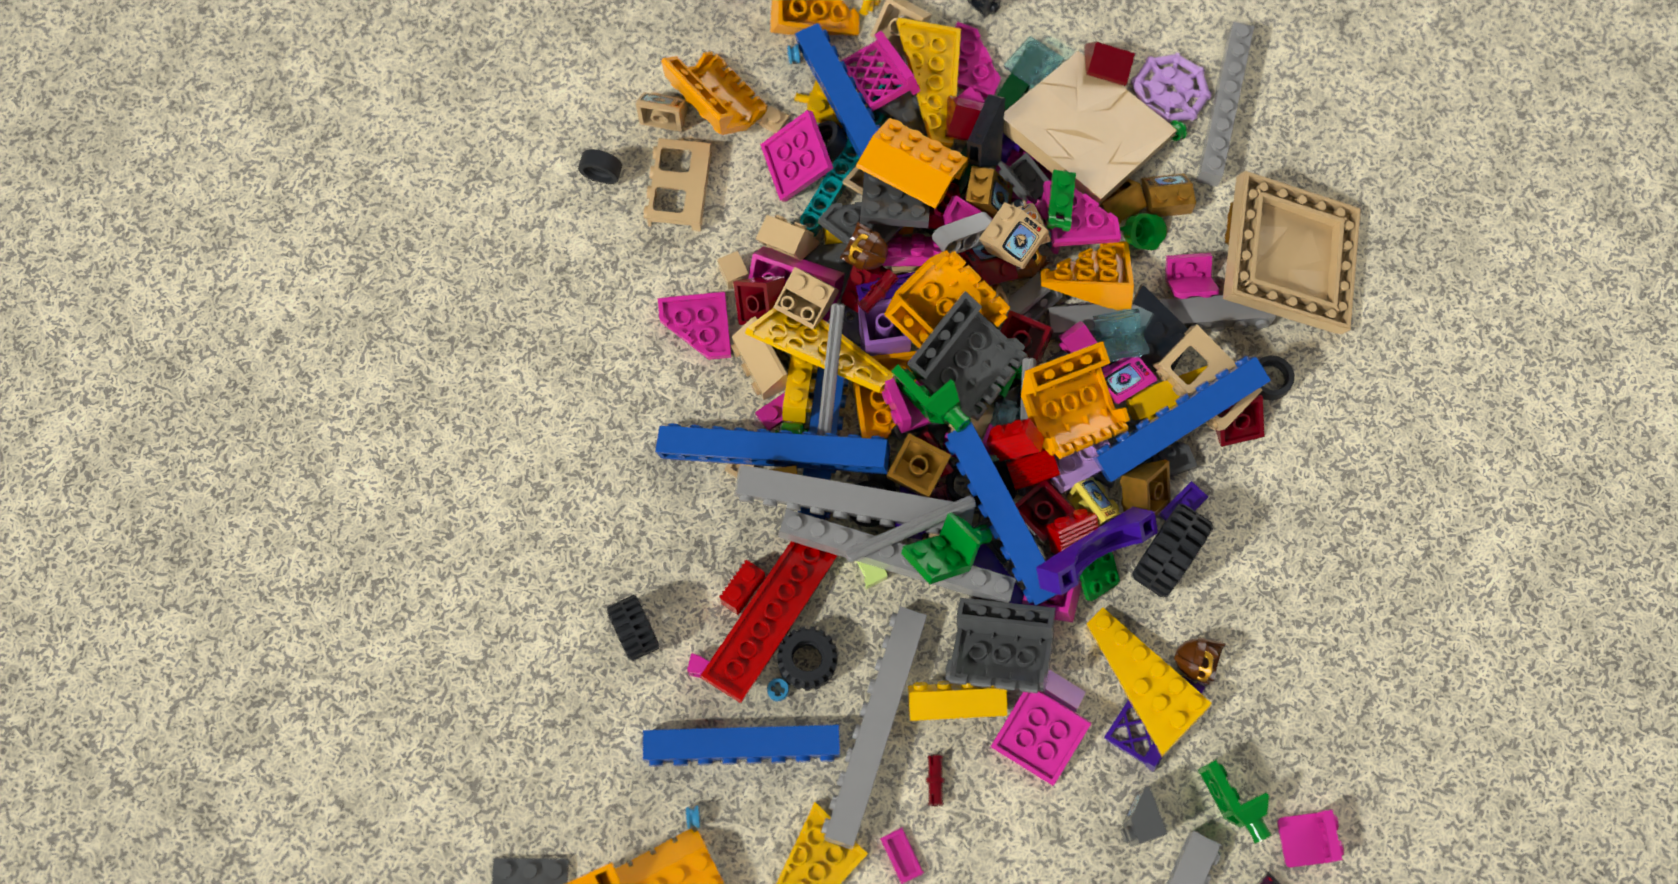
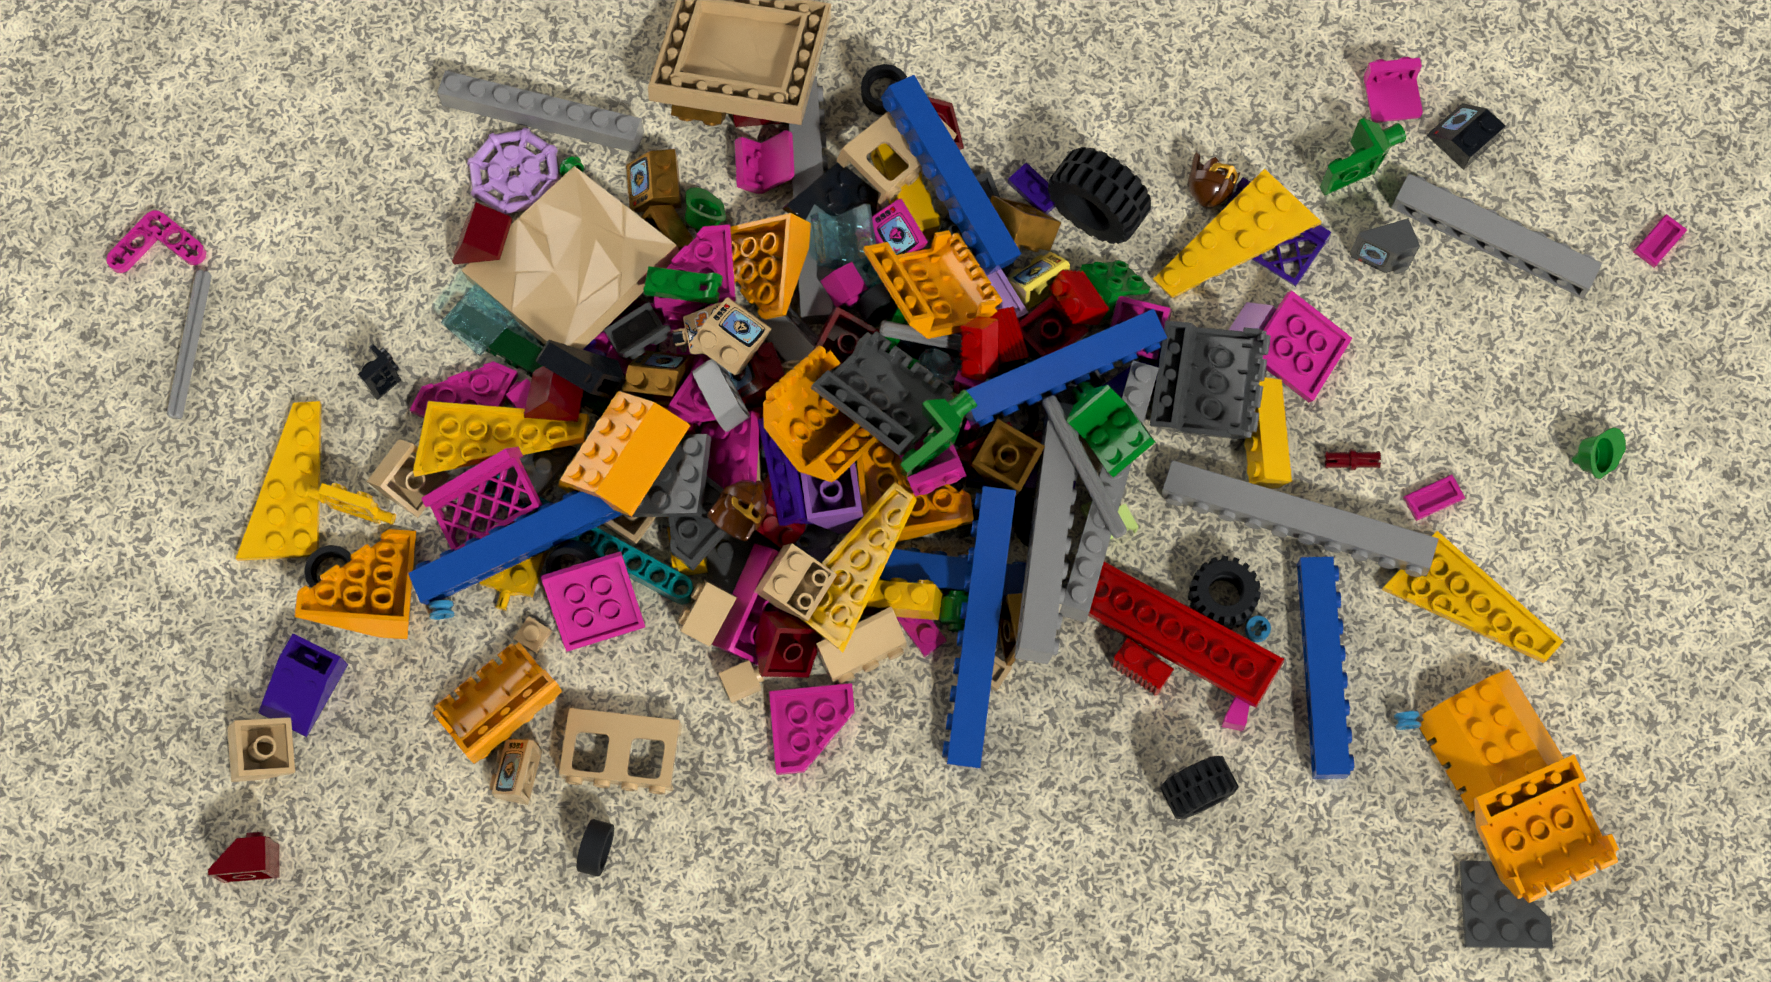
camera: 85 degrees left, 0 degrees up
(831, 369) = (895, 550): light grey axle -> none
(877, 291) = (797, 492): dark red pin -> none
(1064, 569) = (1074, 240): dark purple arch -> none

